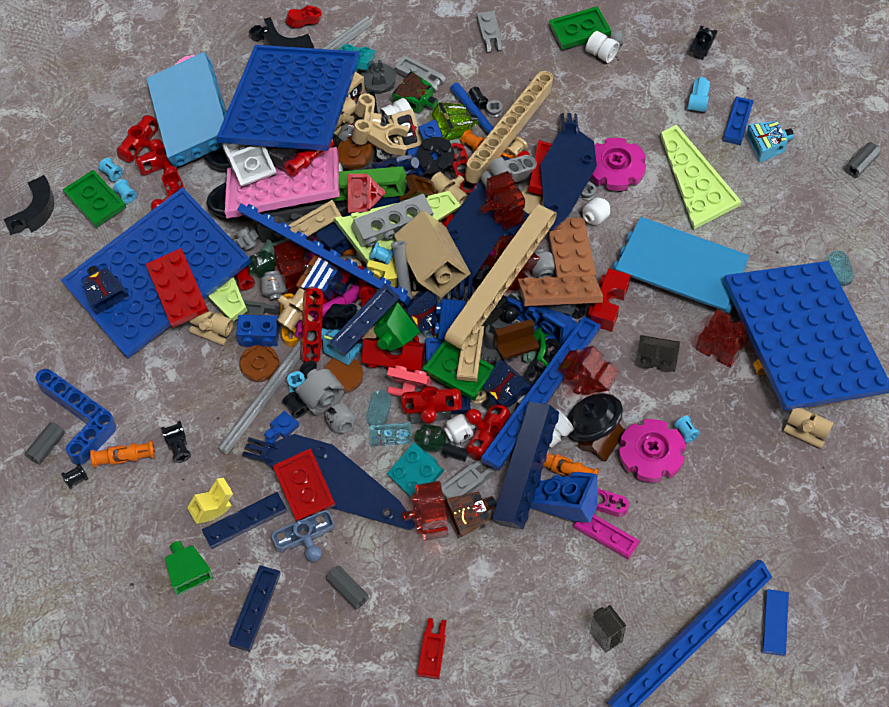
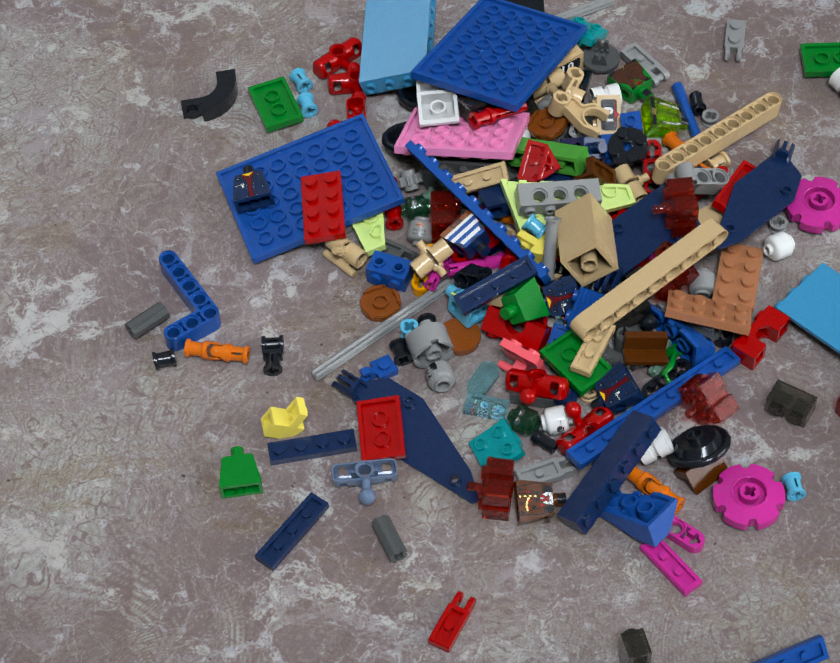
camera: 20 degrees right, 5 degrees down
(312, 325) = (446, 279): red beam -> none

